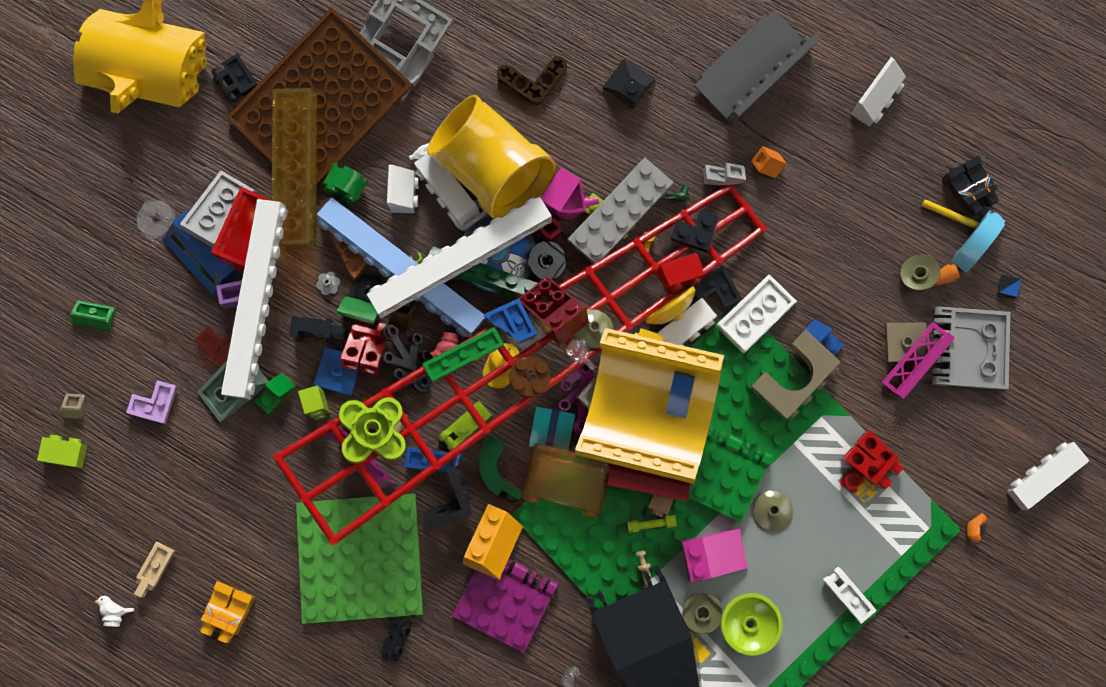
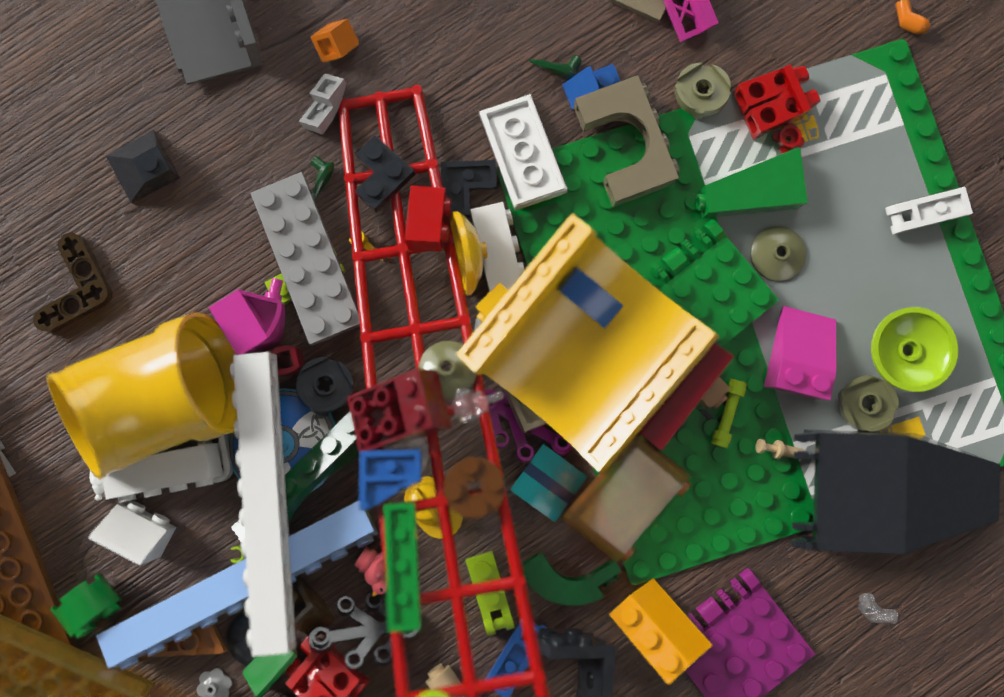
camera: 65 degrees left, 5 degrees up
(807, 475) = (764, 187): none -> green slope
(823, 313) = (561, 69): none -> dark green bar
(848, 418) = (700, 104): none -> olive plate

